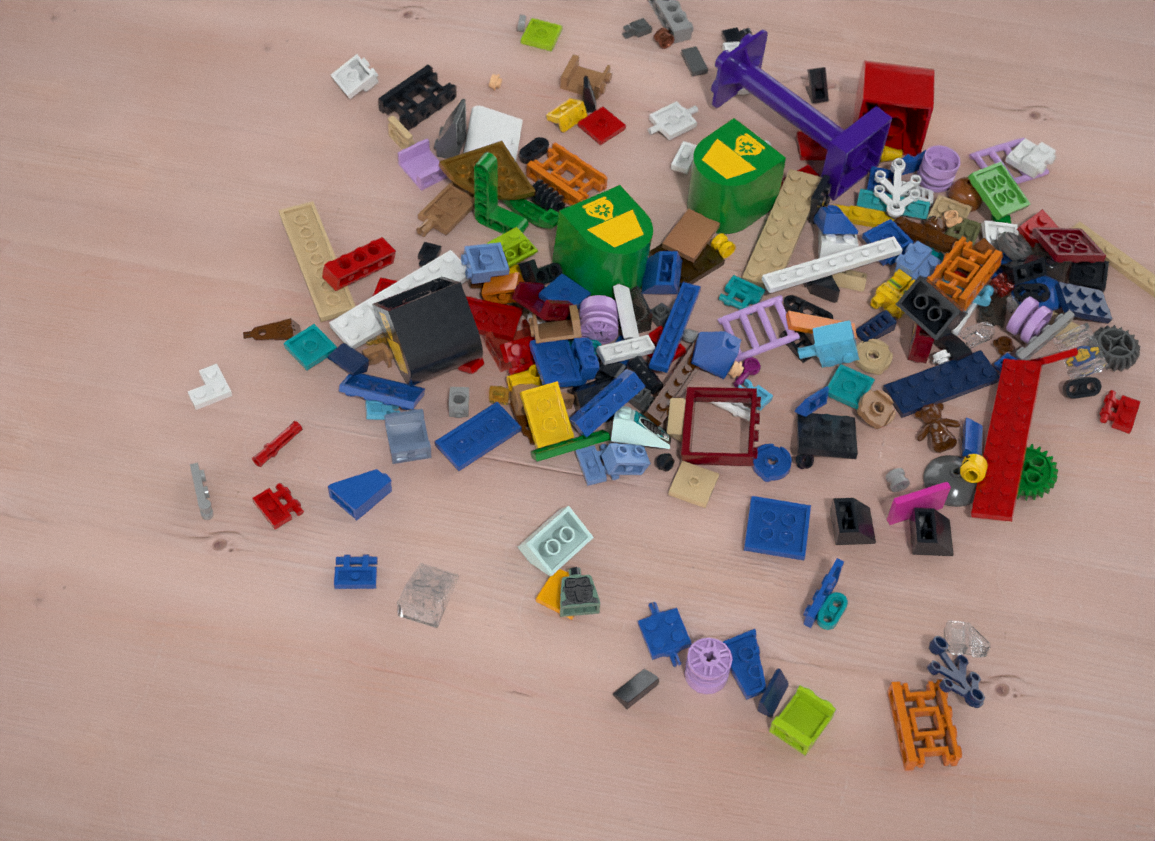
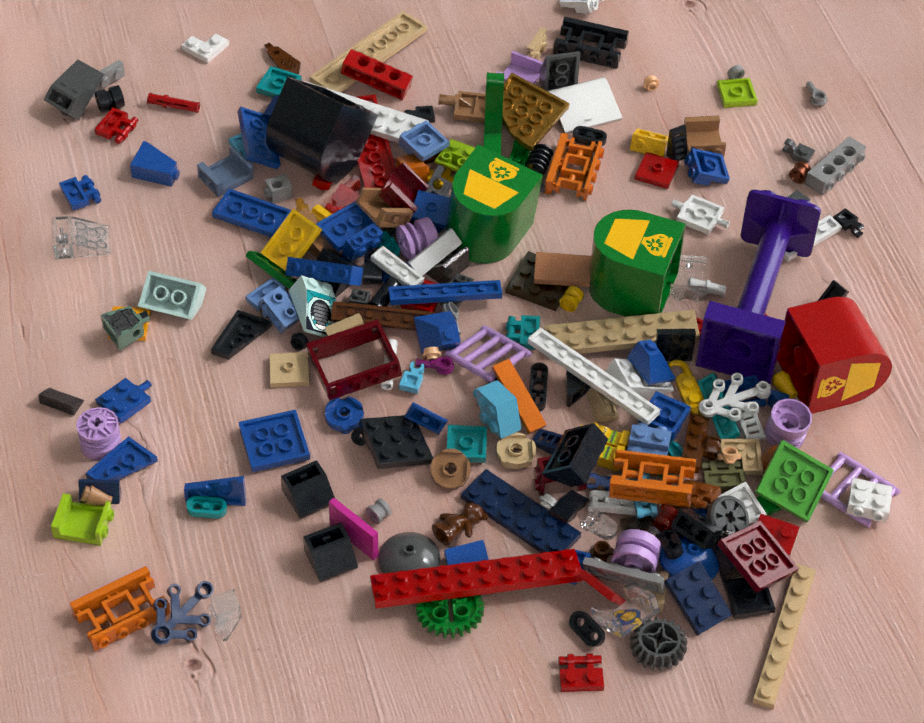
camera: 65 degrees right, 5 degrees down
(211, 517) = (74, 89): none -> dark grey slope
(237, 495) = (108, 99): none -> black wheel
(623, 92) = (706, 167): none -> blue plate
(629, 505) = (239, 333): none -> black wing
(662, 273) = (502, 265): blue slope -> none
(783, 698) = (94, 496): none -> medium nougat cone
(973, 468) = (417, 557): yellow head -> none

